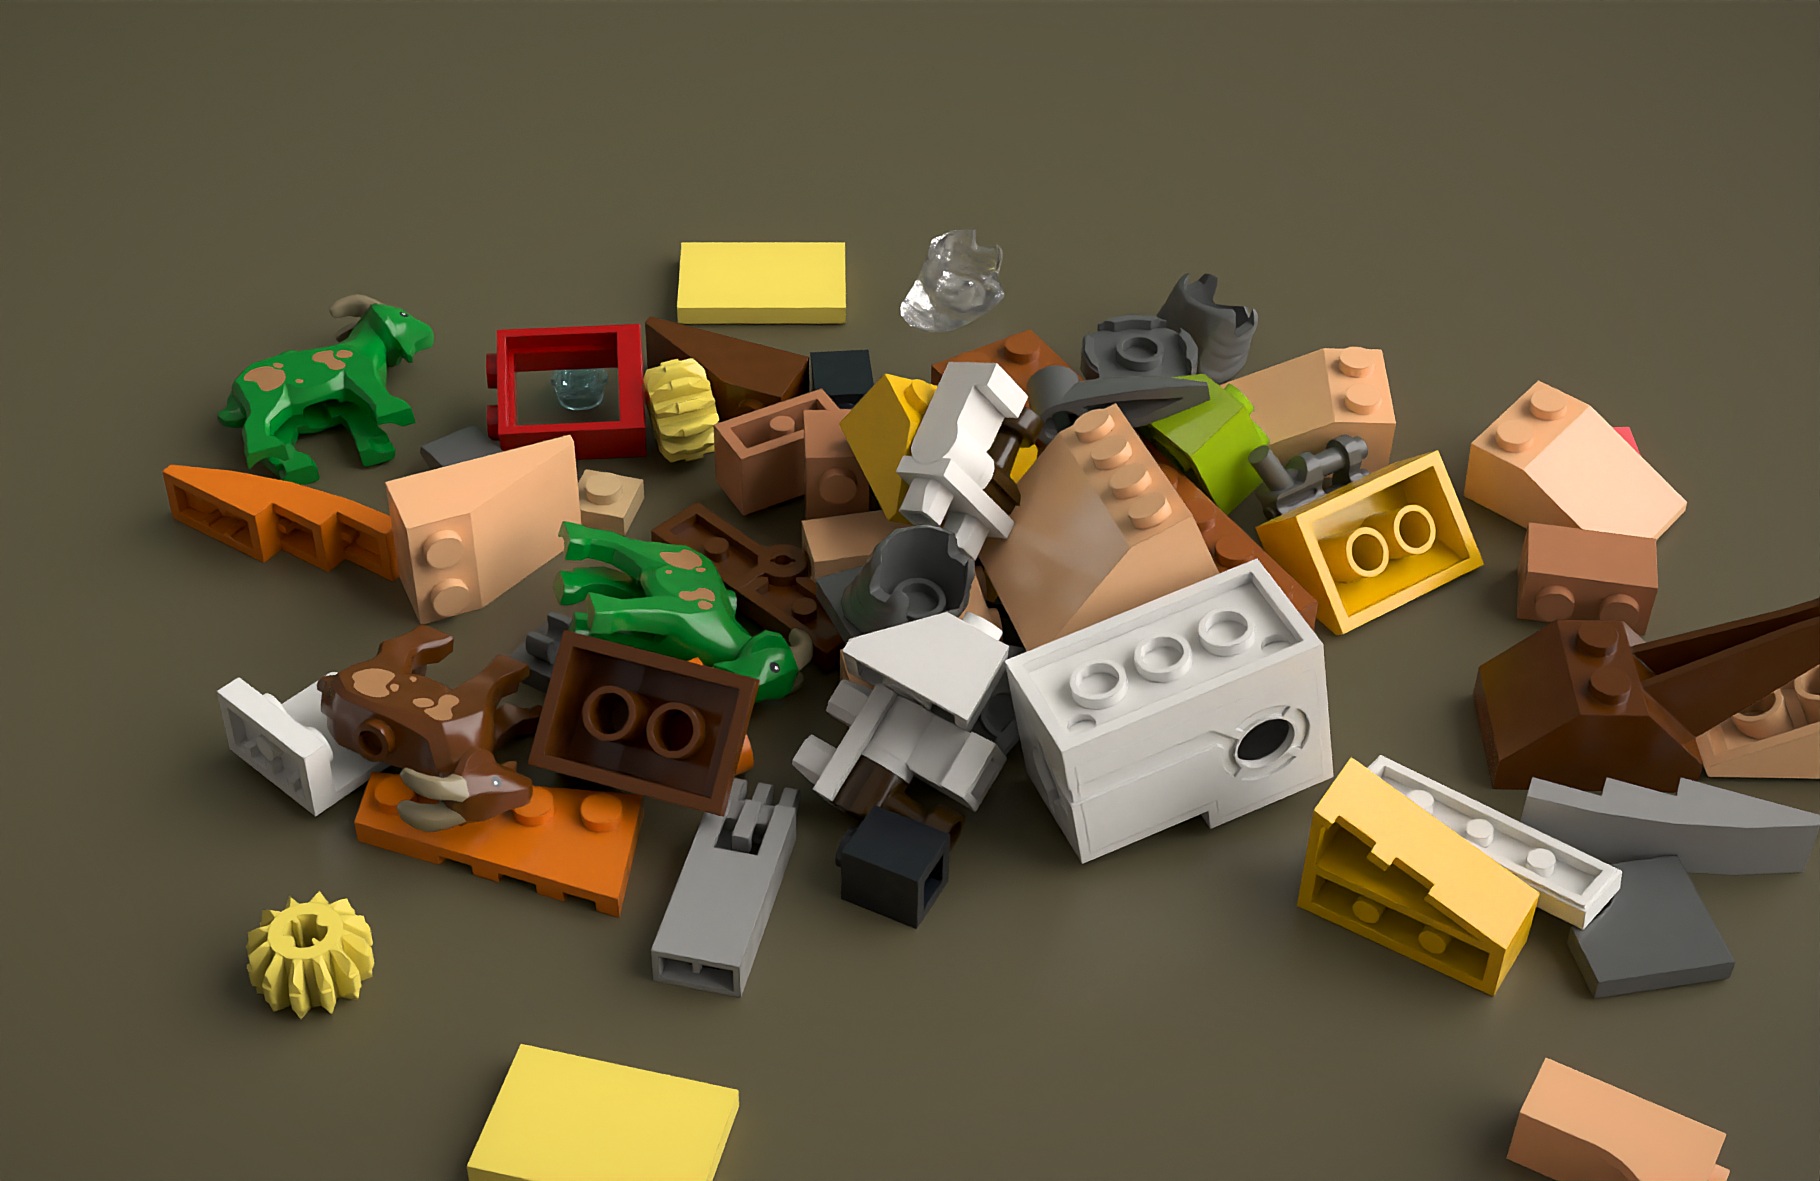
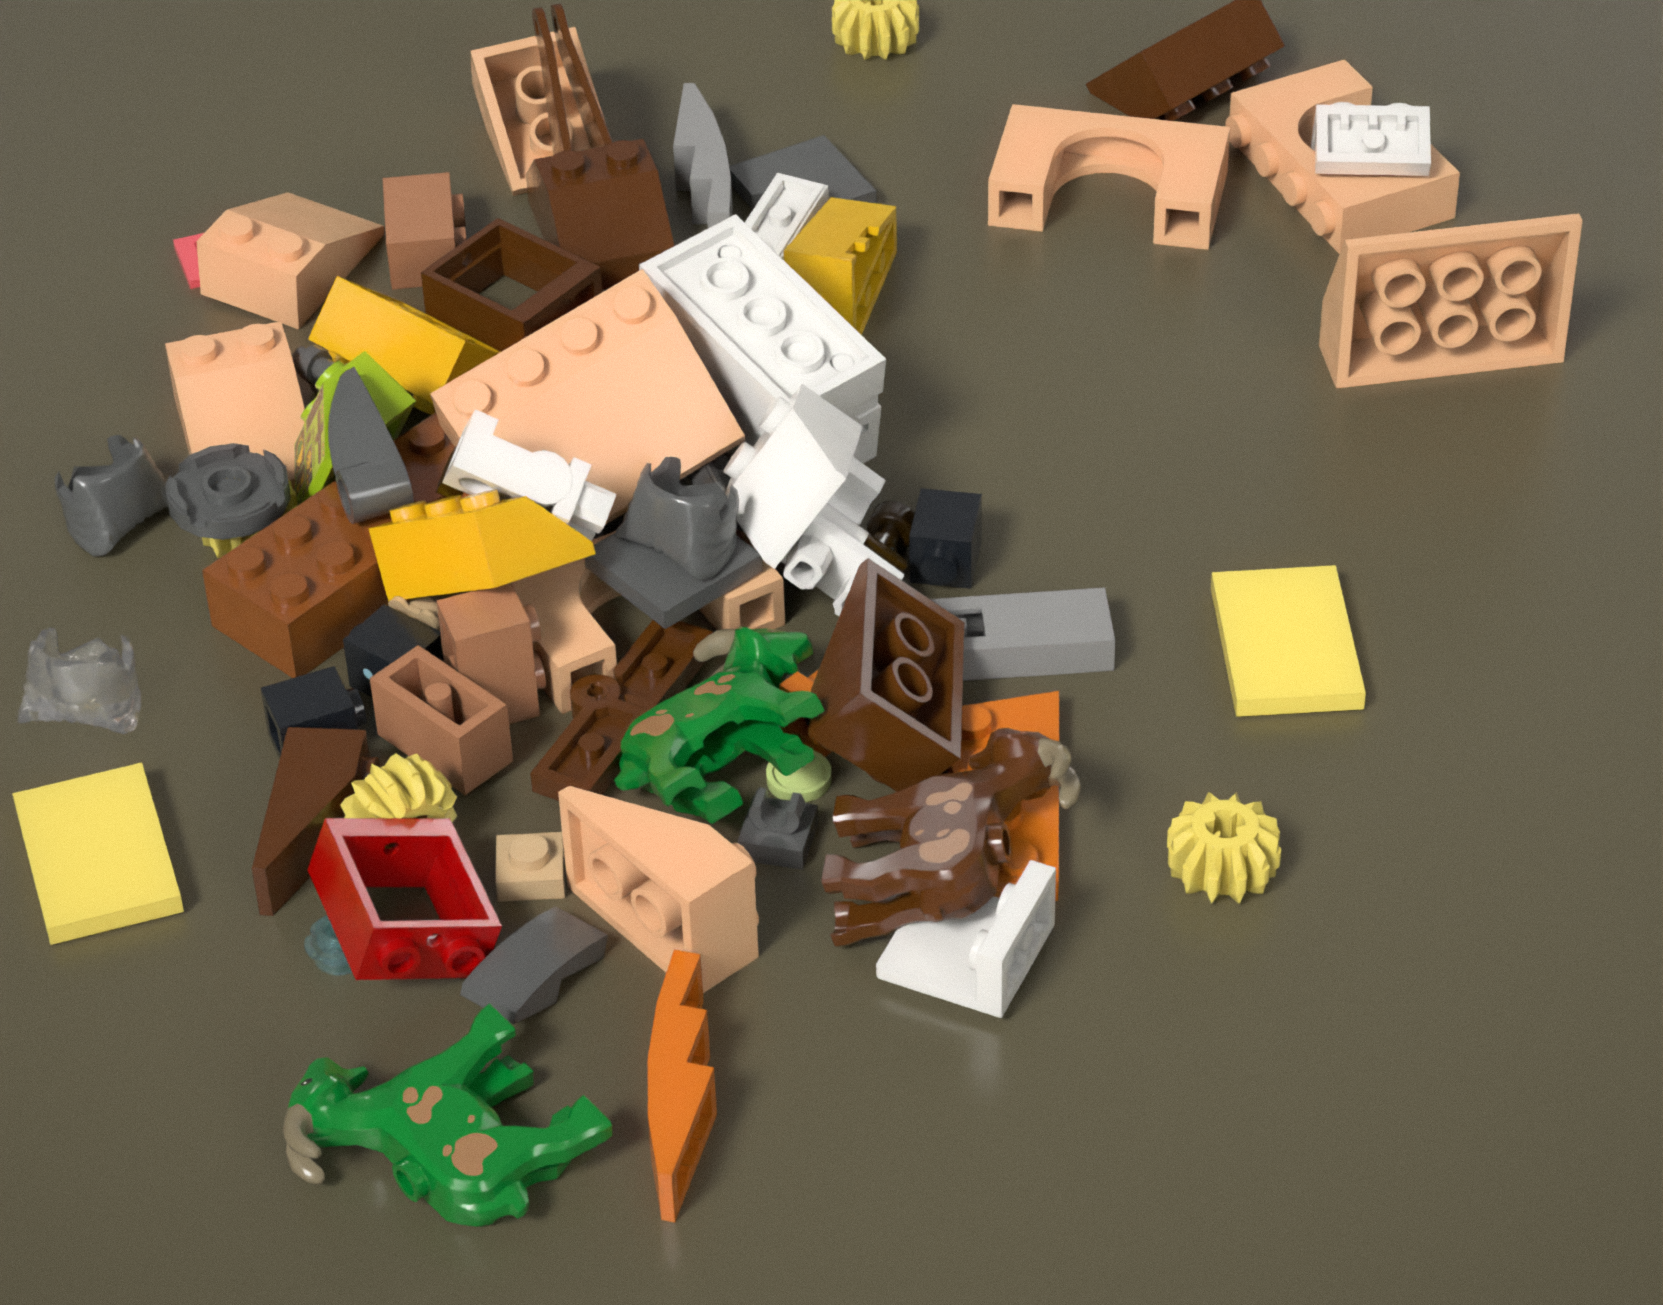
camera: 105 degrees left, 0 degrees up
(1428, 670) = (497, 250): none -> reddish brown window

